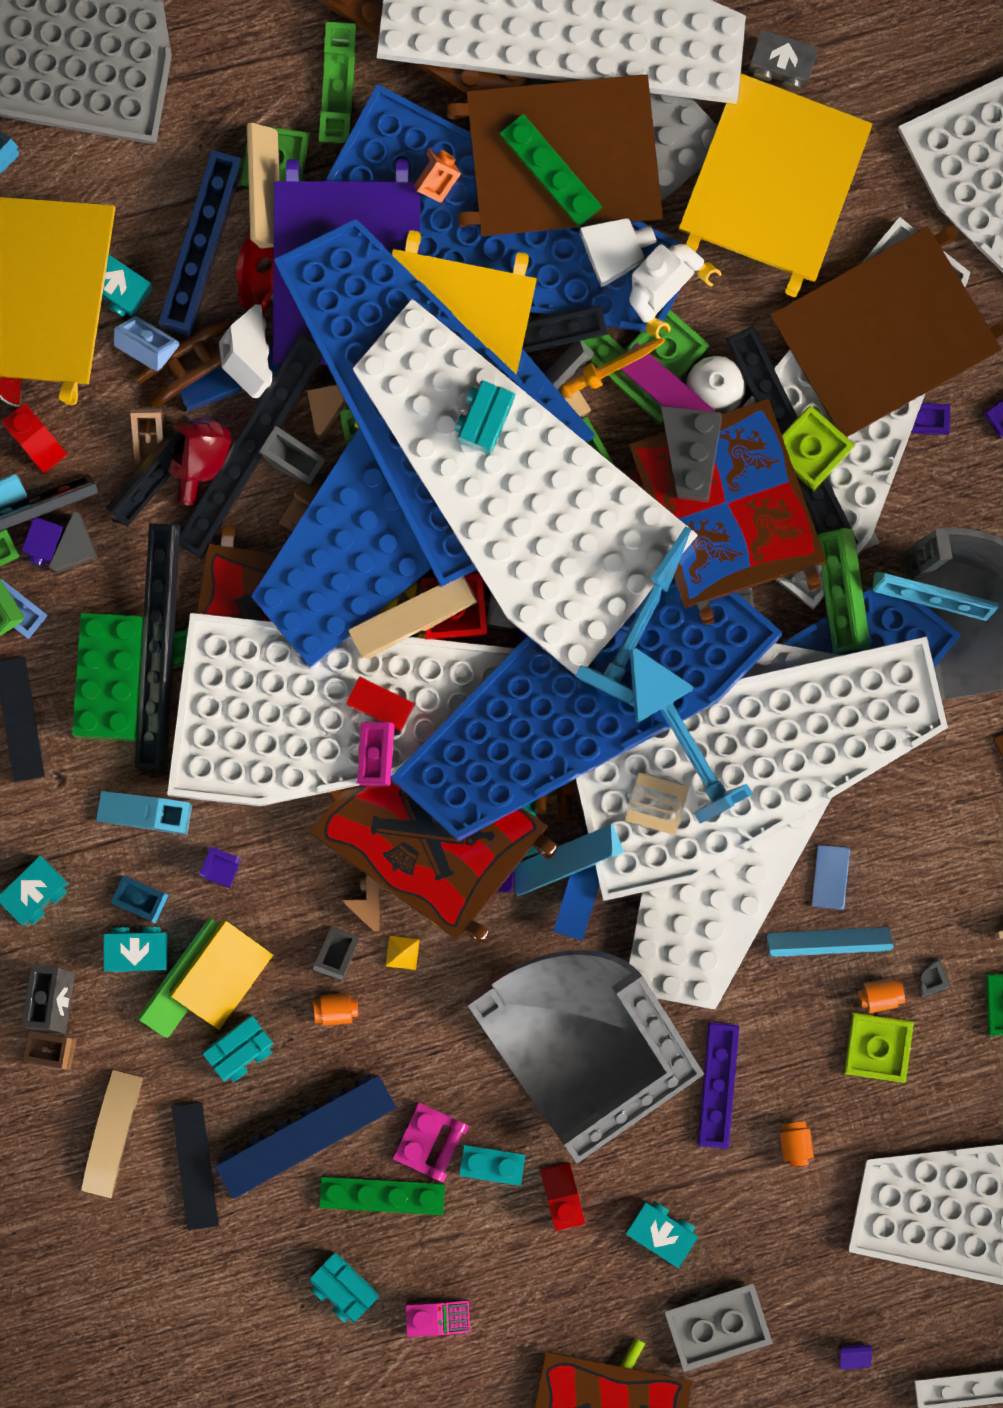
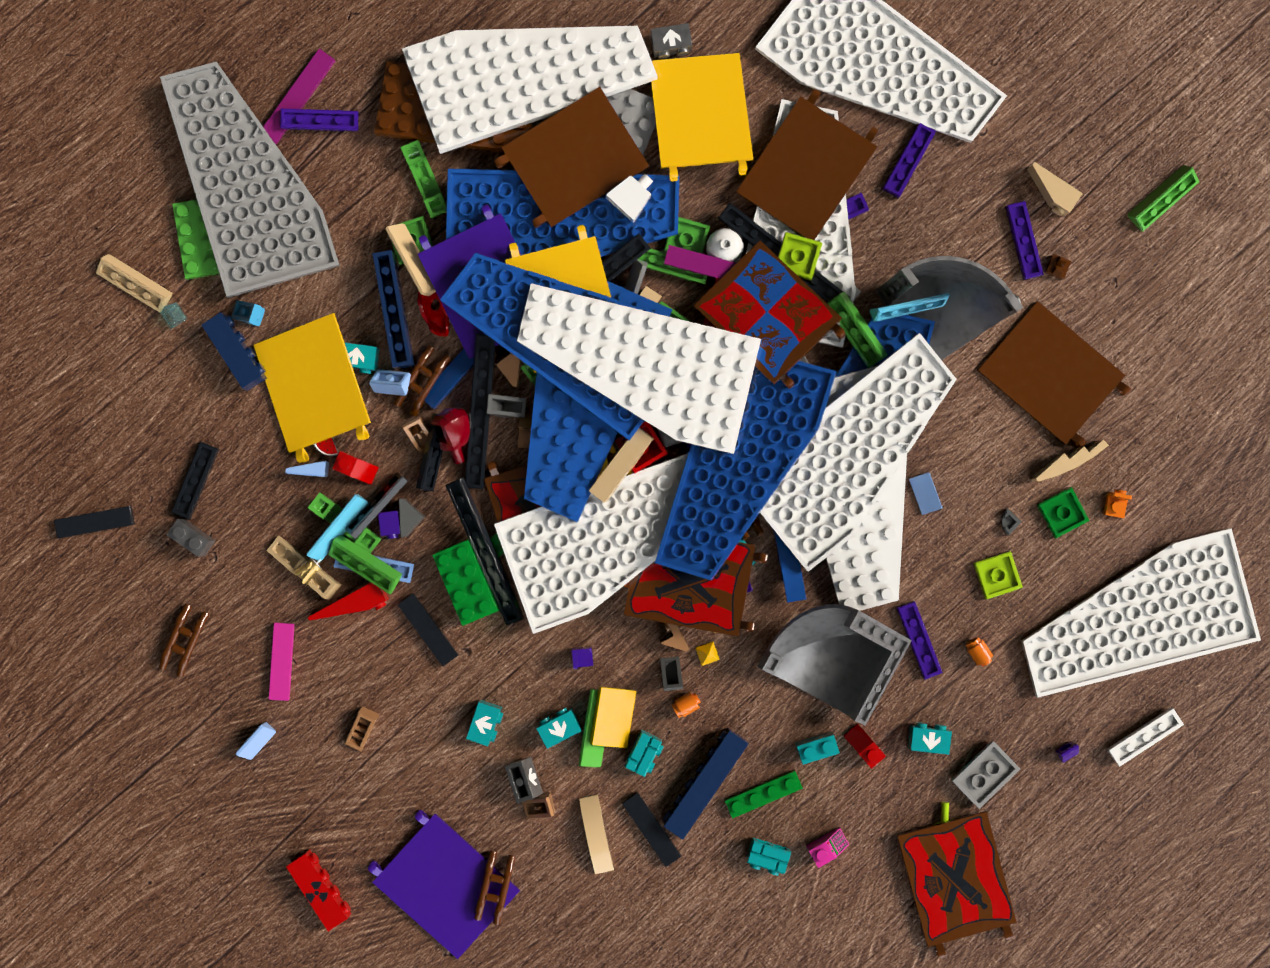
camera: 25 degrees left, 5 degrees up
(139, 899) = (546, 698): dark azure slope -> none
(144, 812) = (524, 648): medium azure slope -> none
(246, 352) = (451, 360): white slope -> none
(375, 754) = (639, 553): dark pink plate -> none
(380, 703) = (627, 523): red tile -> none
(421, 1137) = (769, 751): dark pink plate -> none
(438, 175) = (509, 204): orange bracket -> none
(485, 416) = (607, 331): teal brick -> none
(550, 170) = (572, 169): green plate -> none
(568, 860) = (777, 558): medium azure slope -> none
(592, 376) = (653, 276): light orange sword -> none
(611, 679) = (753, 447): dark azure piece -> none
(655, 691) = (783, 441): dark azure piece -> none
(656, 803) = (811, 503): piece -> none
(661, 279) = (666, 200): white torso -> none
(692, 449) = (732, 291): dark grey wing -> none
(829, 942) = (942, 530): medium azure slope -> none
(881, 995) = (986, 545): orange brick -> none

